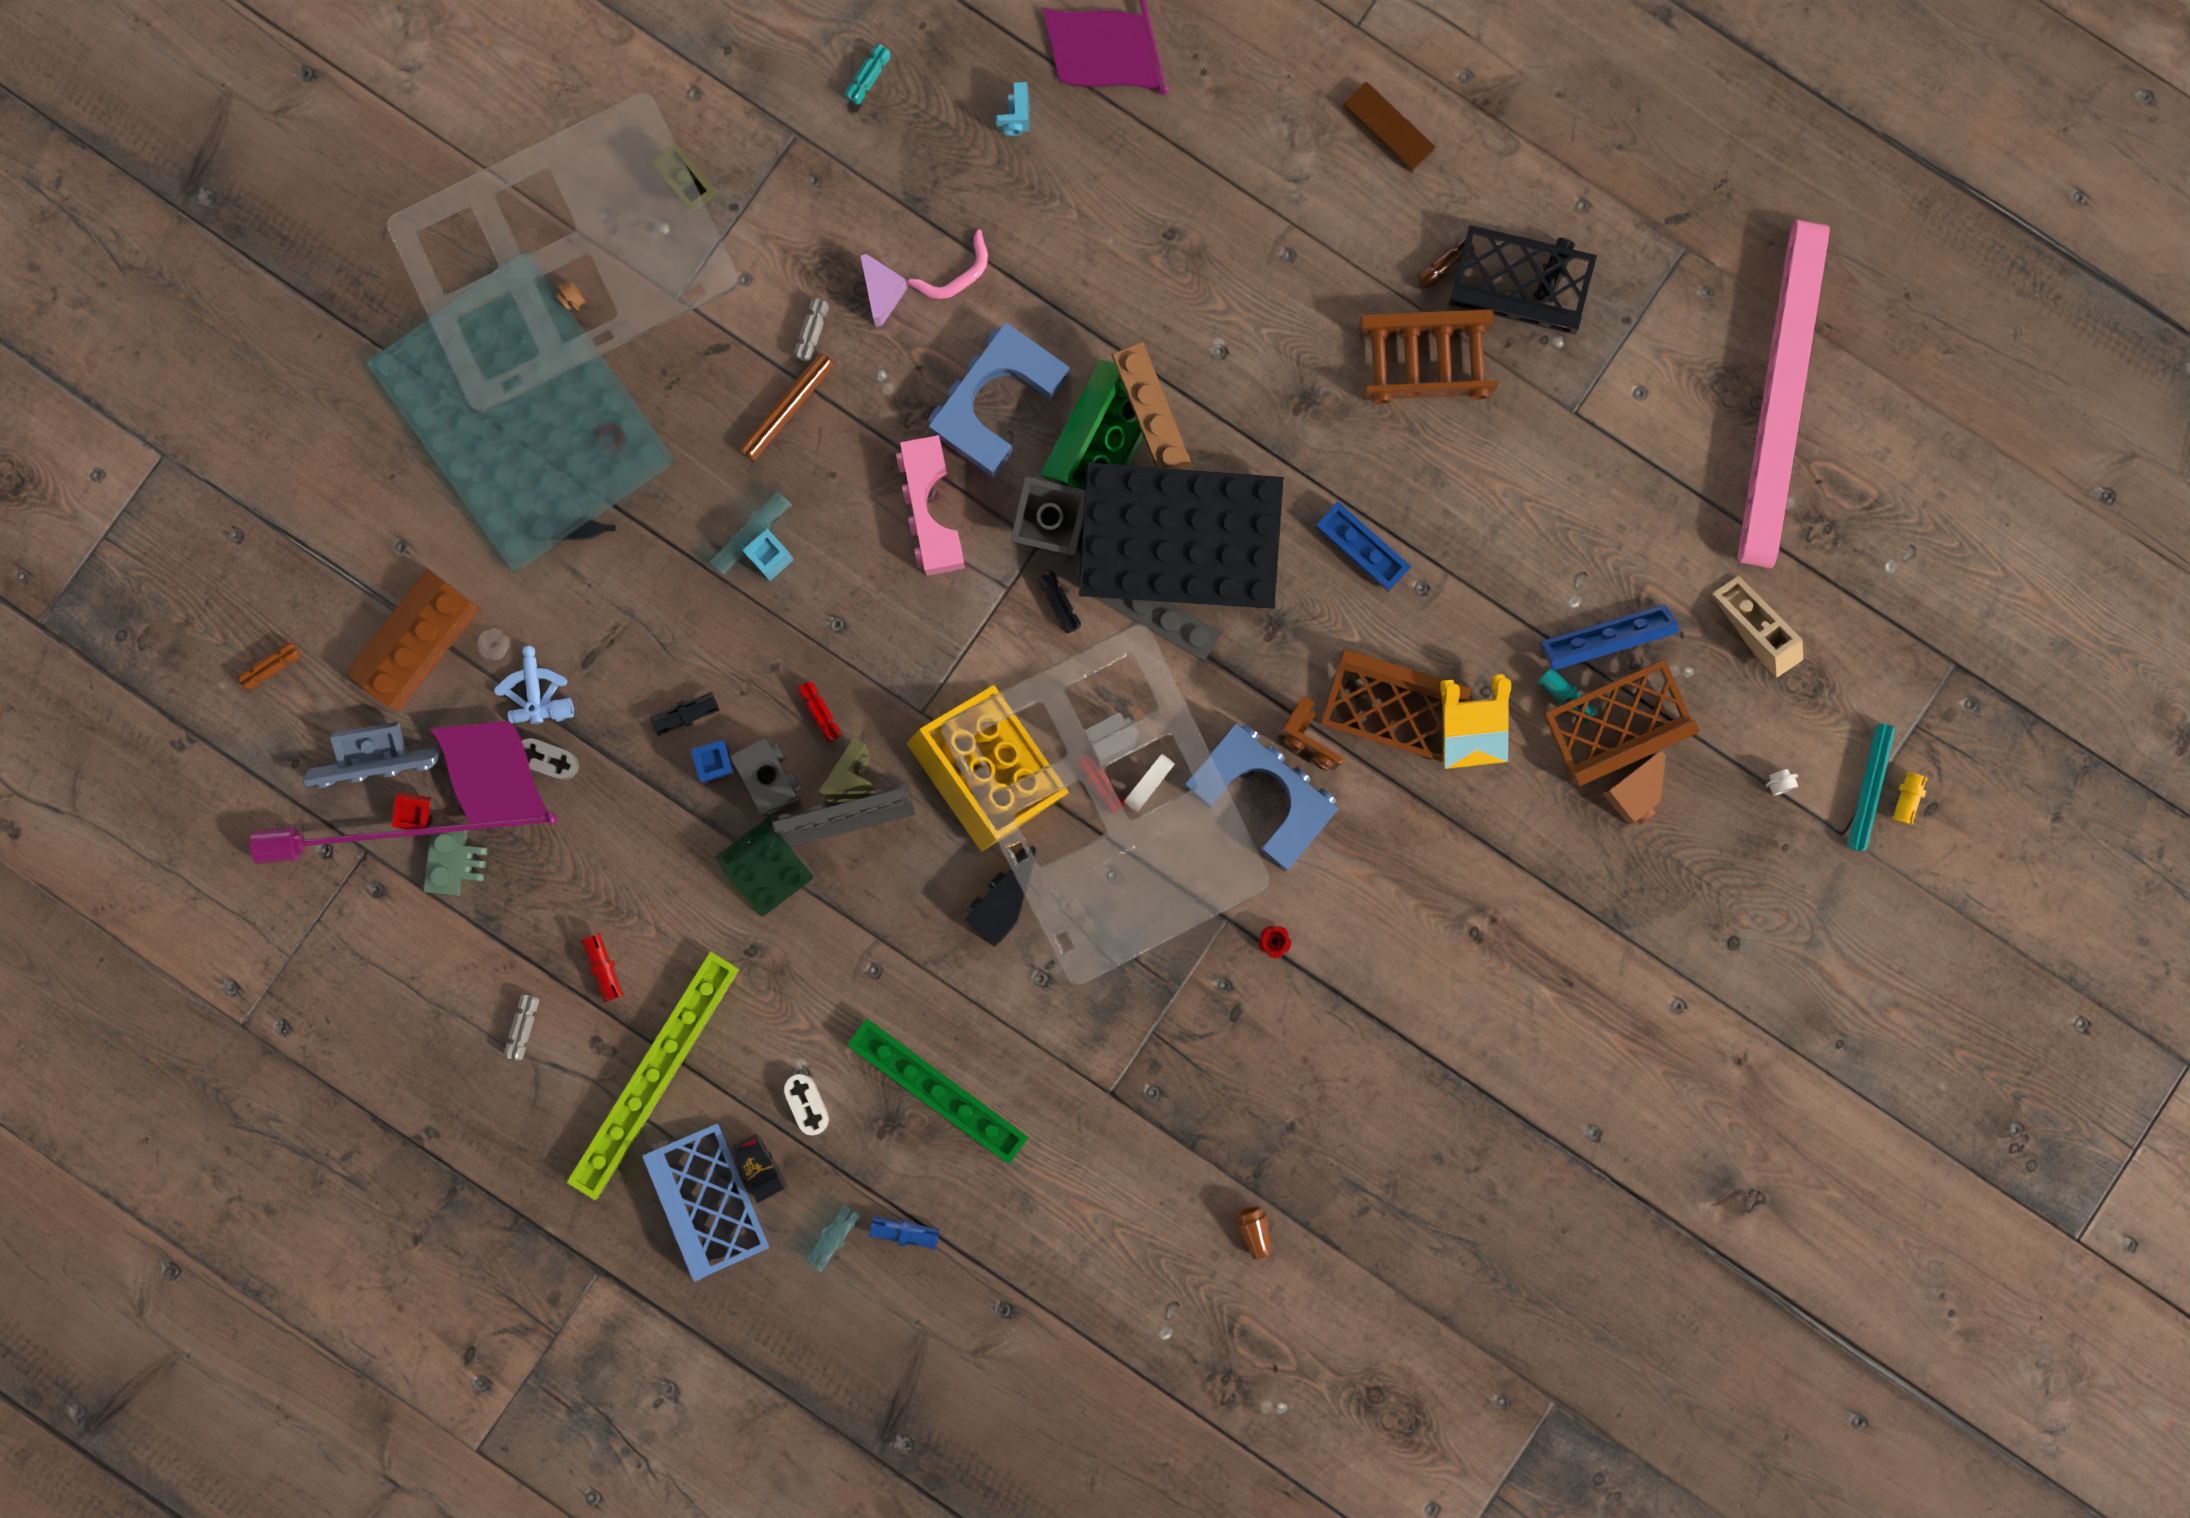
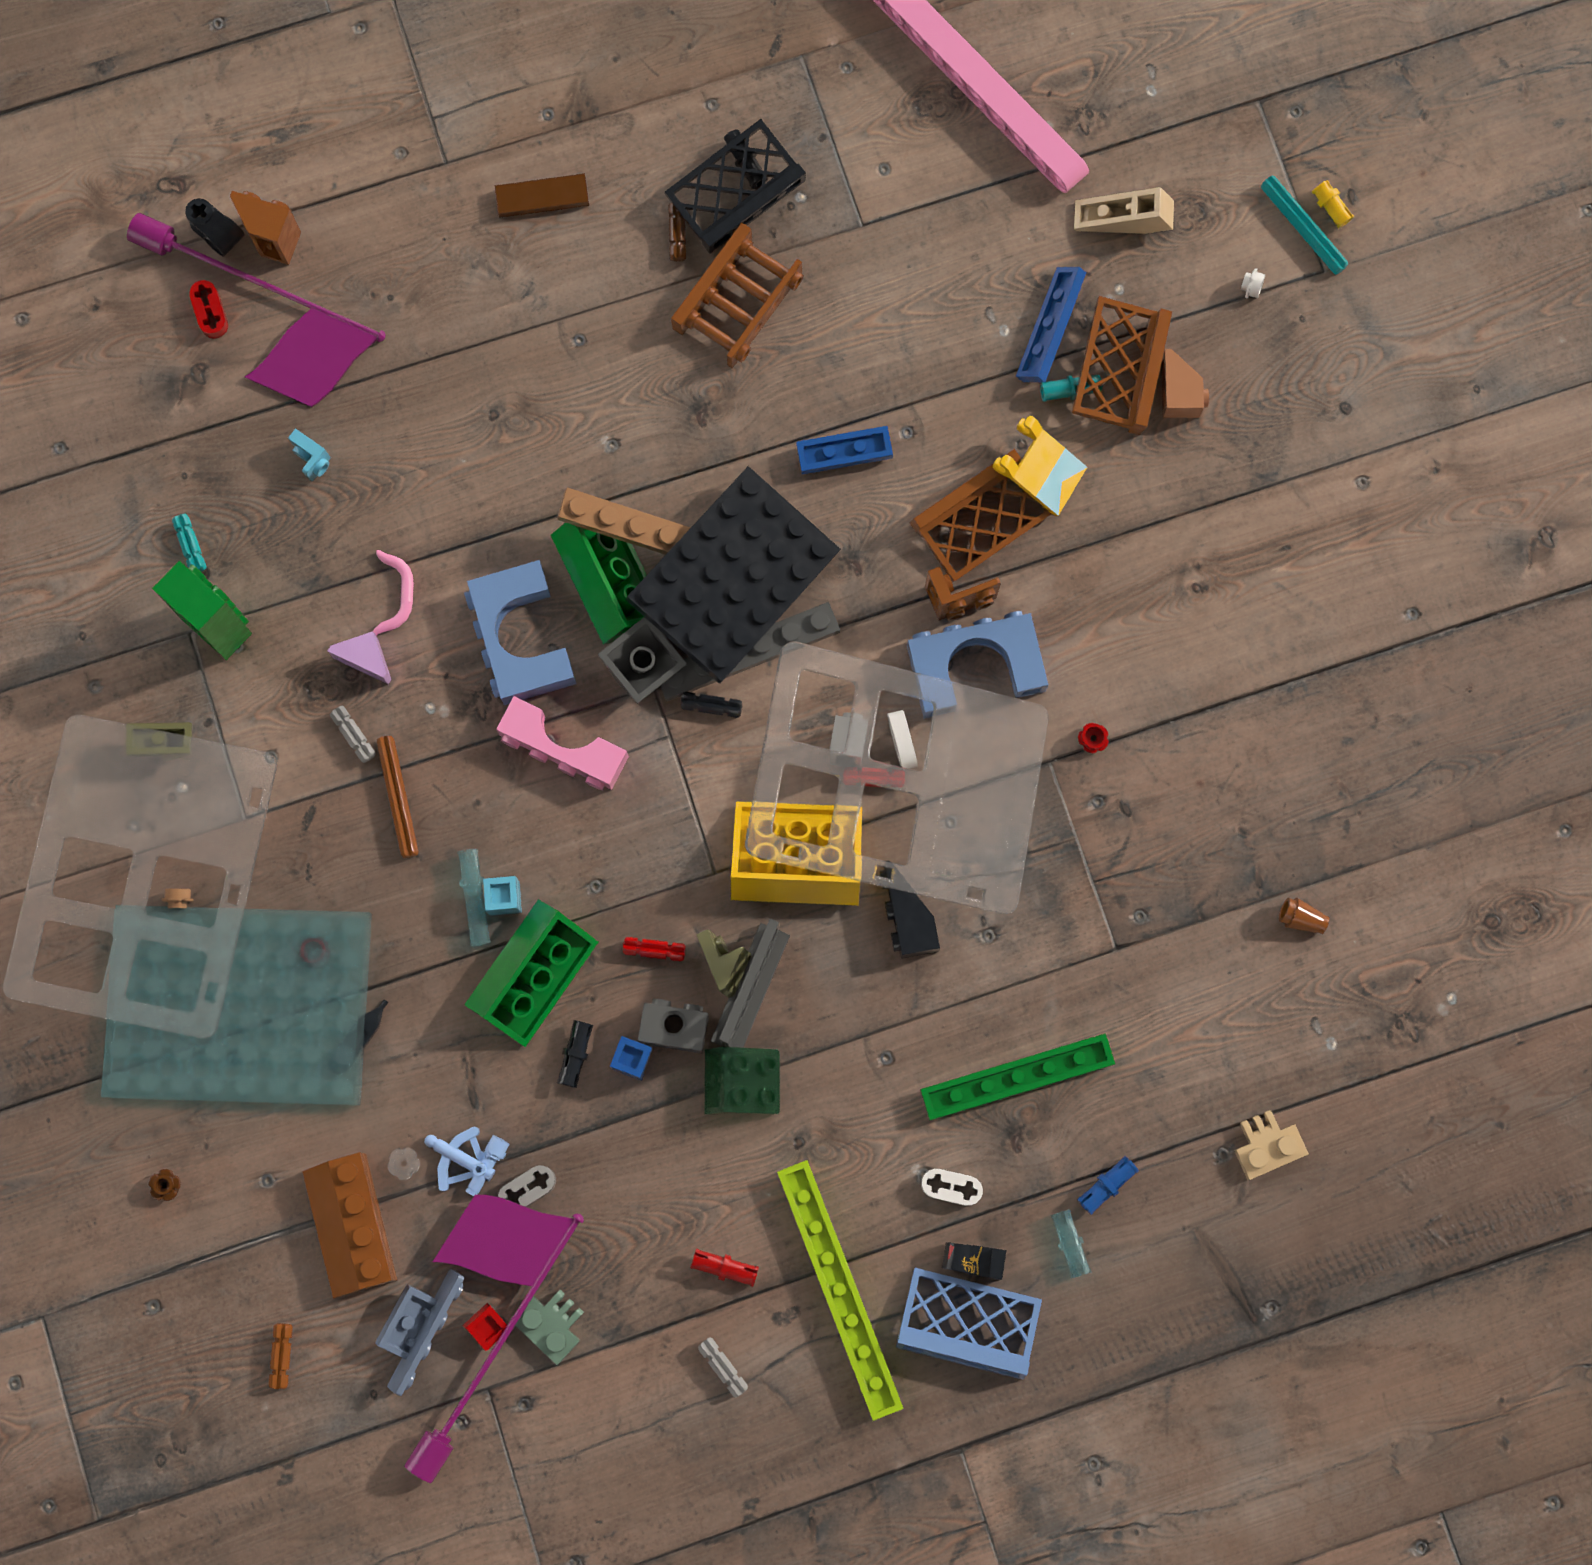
camera: 50 degrees left, 5 degrees down
(340, 474) = (173, 1185): none -> reddish brown plate
(723, 627) = (531, 973): none -> green slope
(811, 127) = (204, 608): none -> green brick
(1037, 1344) = (1268, 1146): none -> tan hinge

